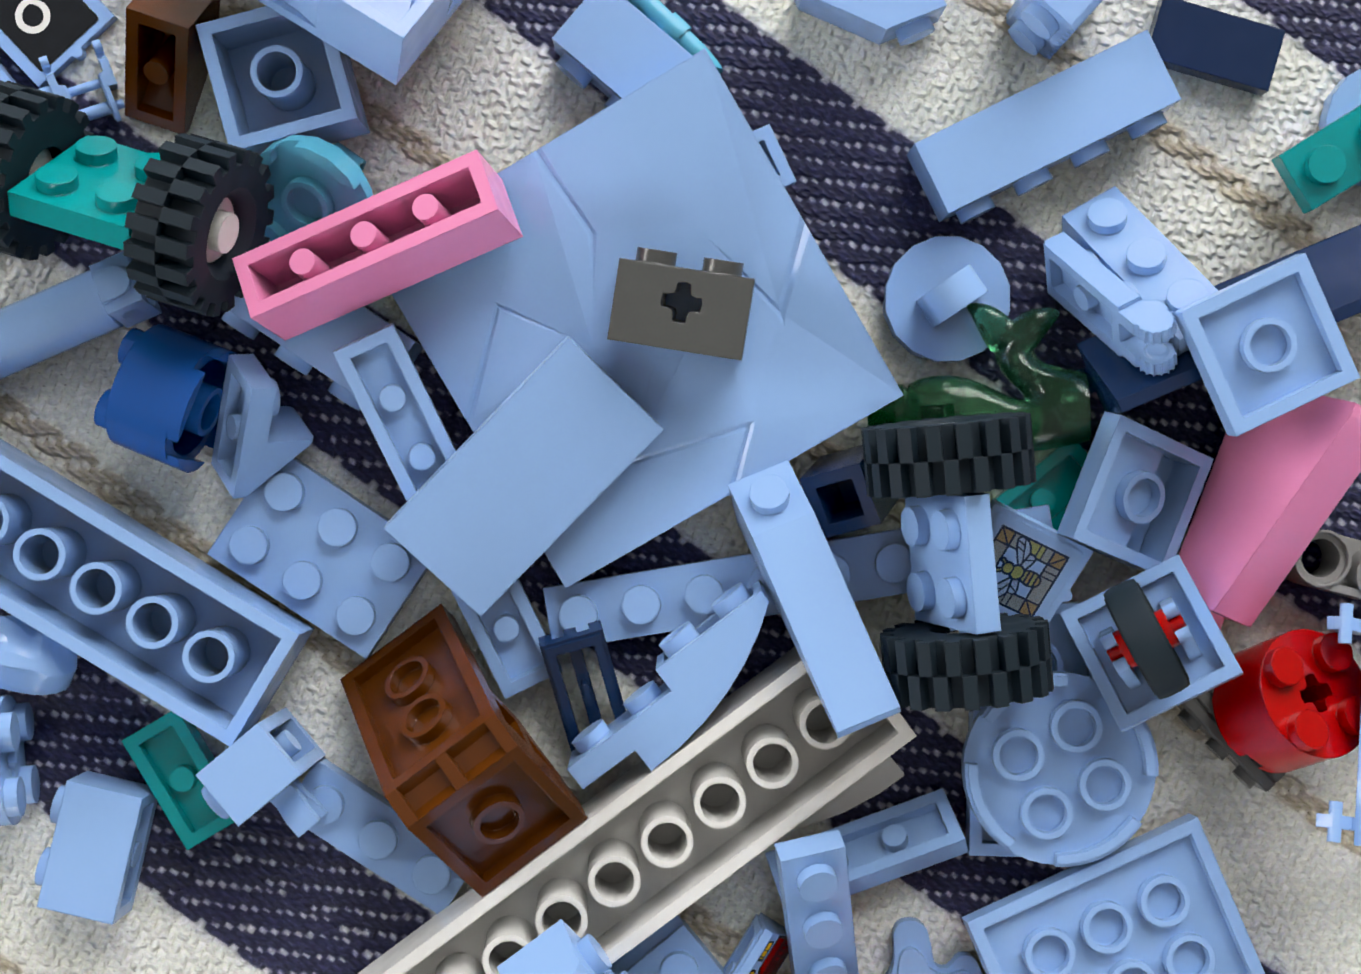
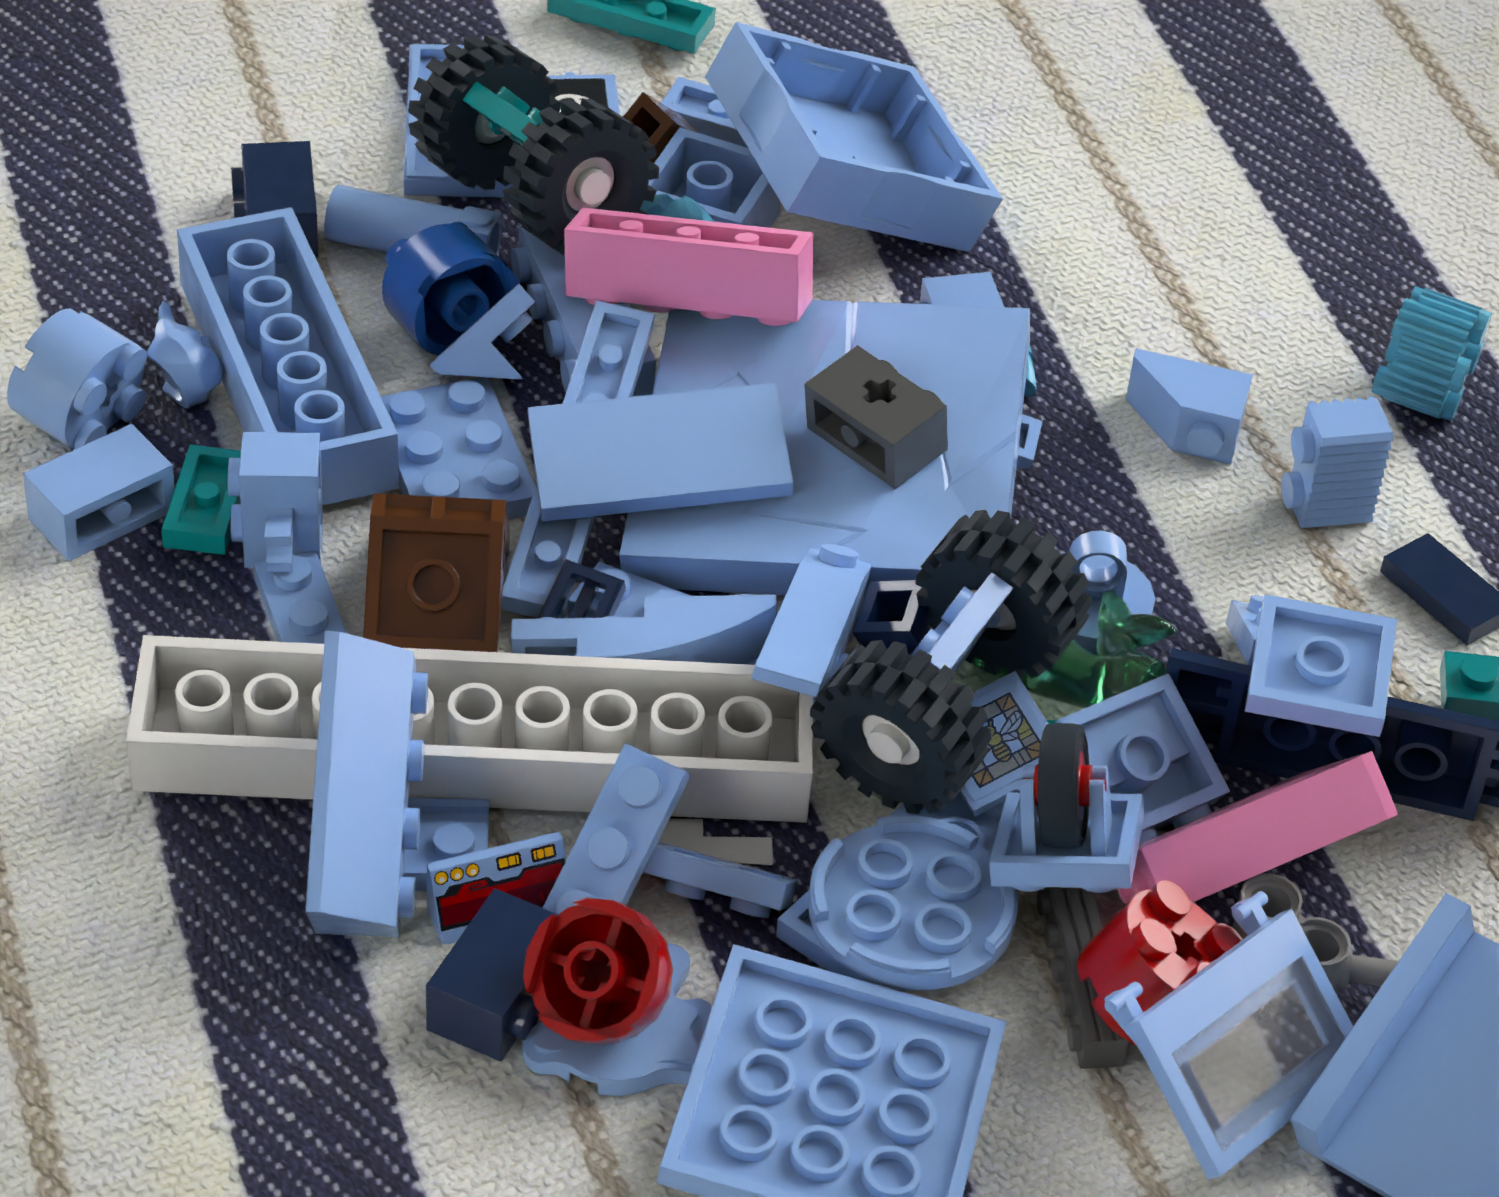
camera: 35 degrees right, 45 degrees down
(1043, 127) = (1261, 542): light blue brick -> none
(1110, 306) = (1219, 625): light blue hinge -> none

